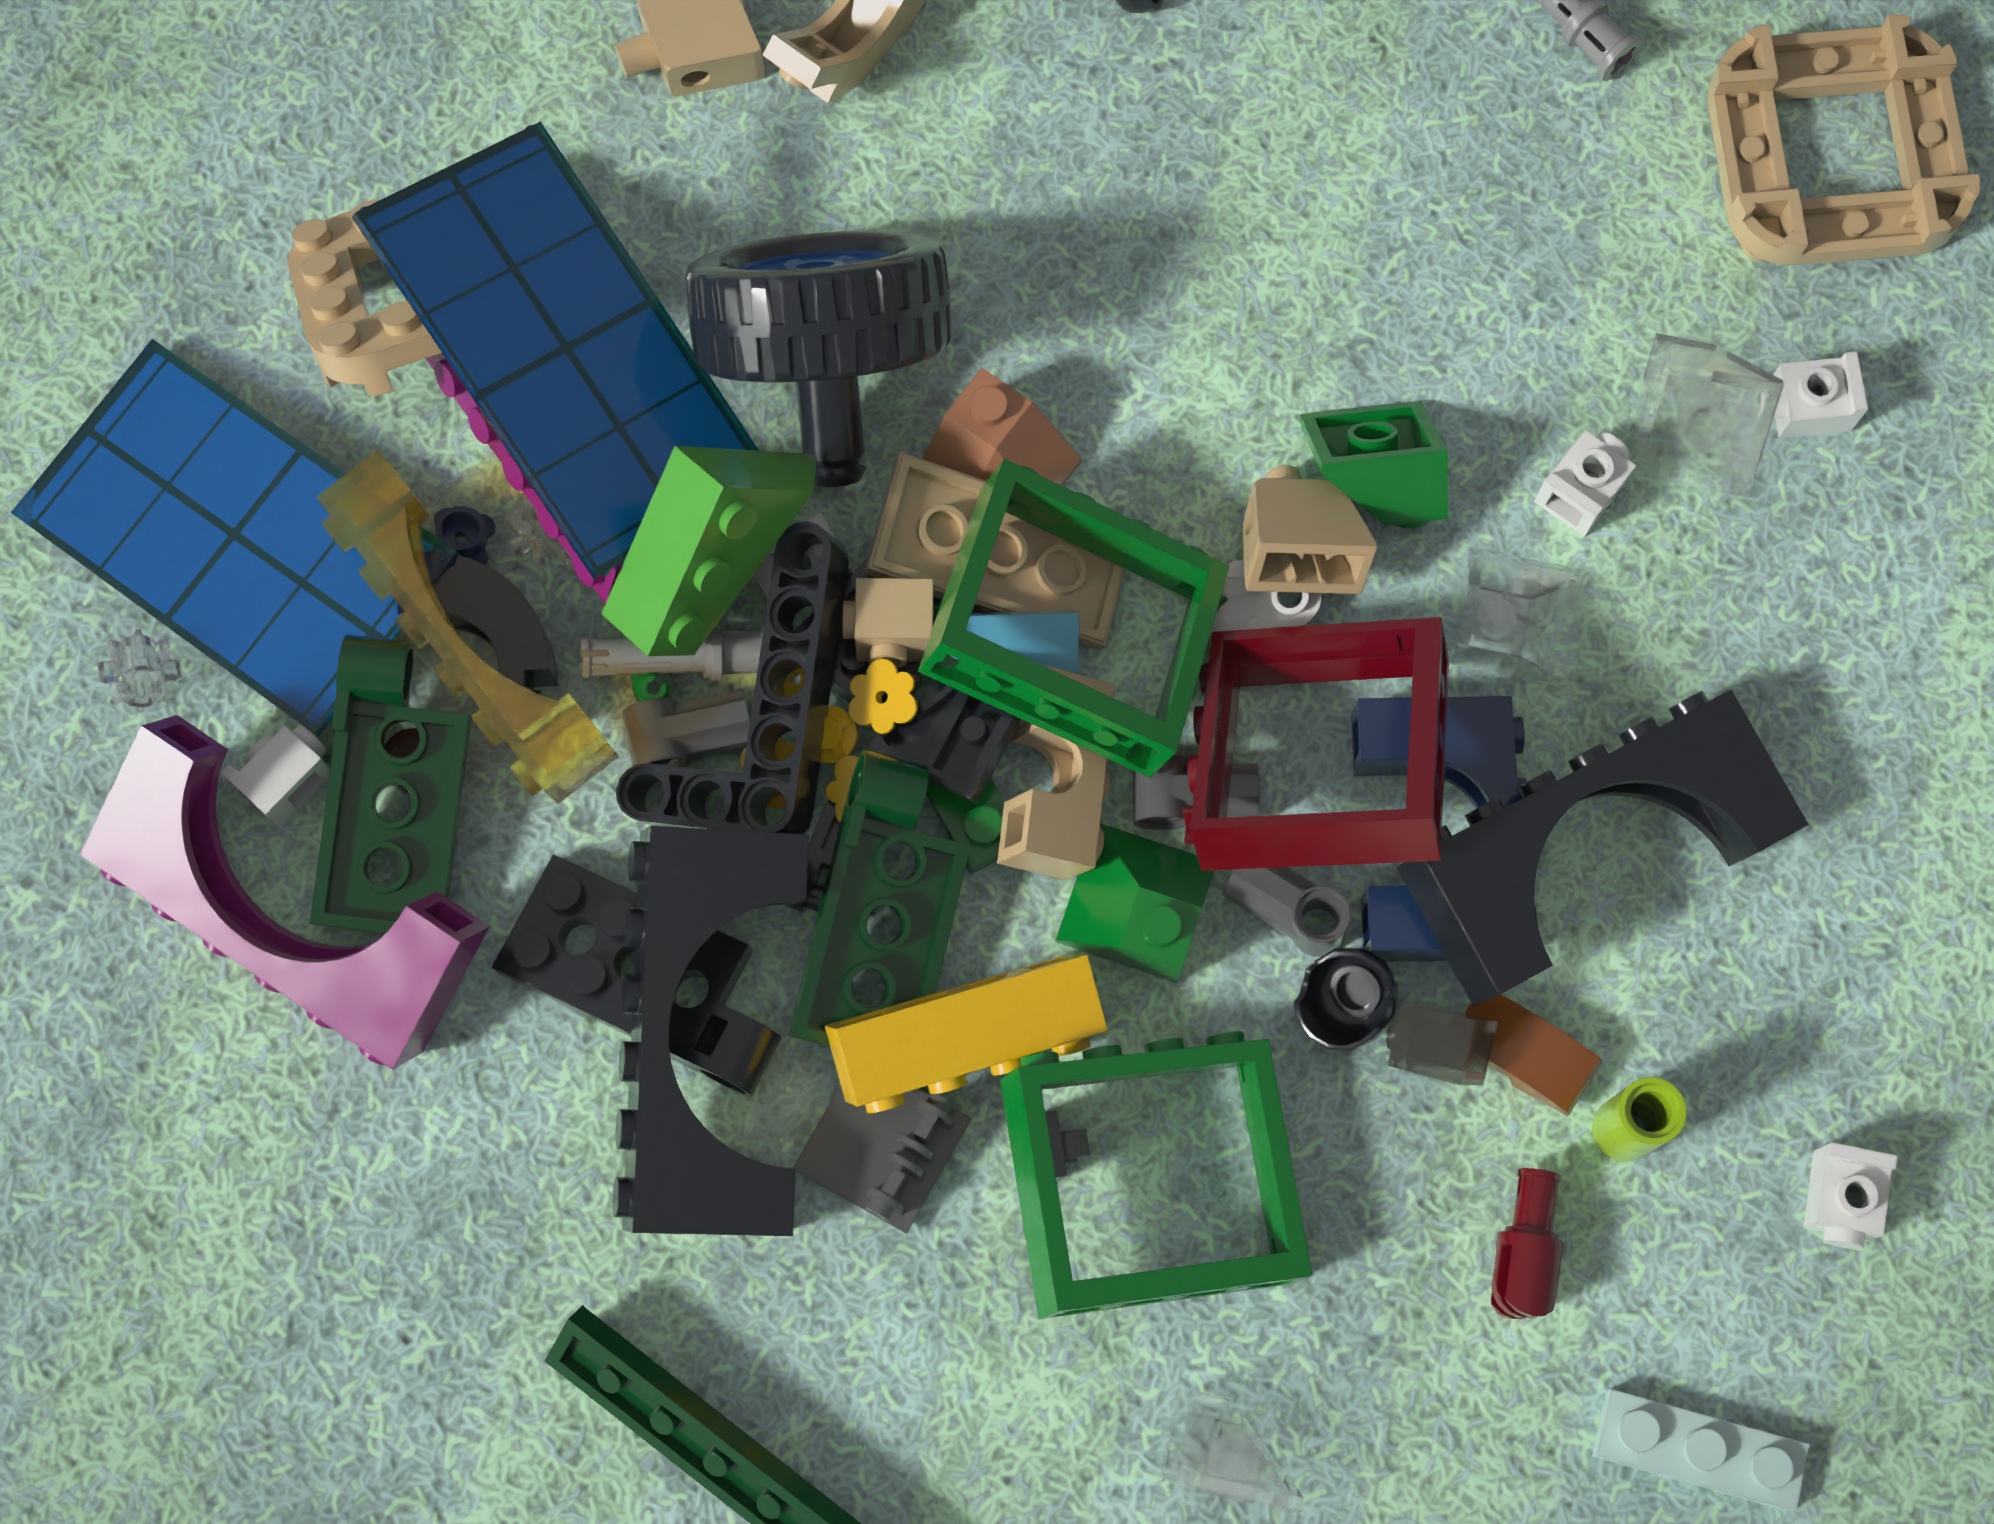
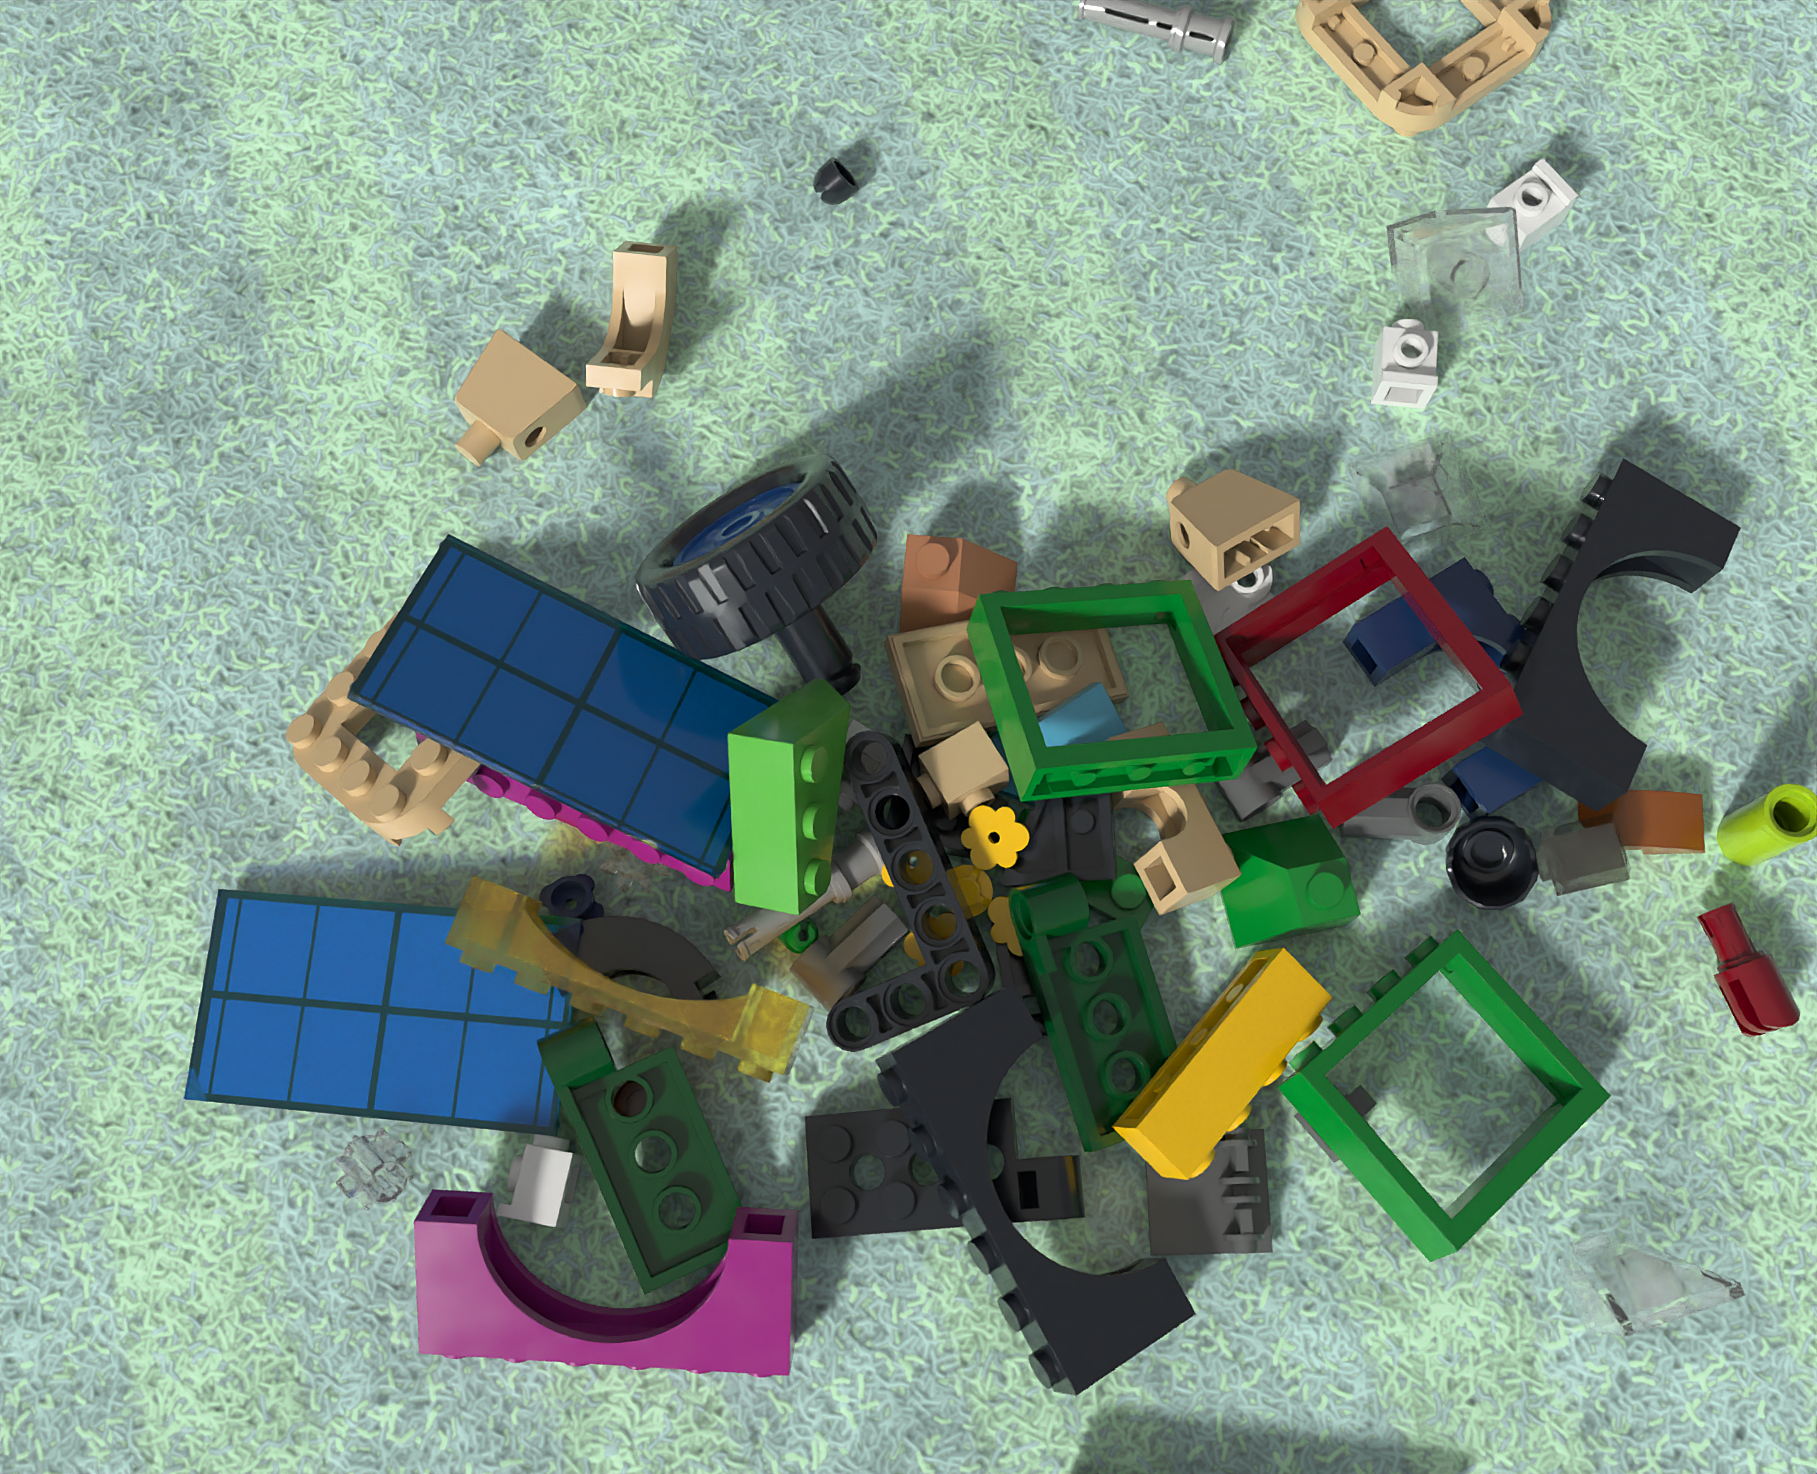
camera: 25 degrees left, 0 degrees up
(1383, 460) = (1250, 431): green slope -> none

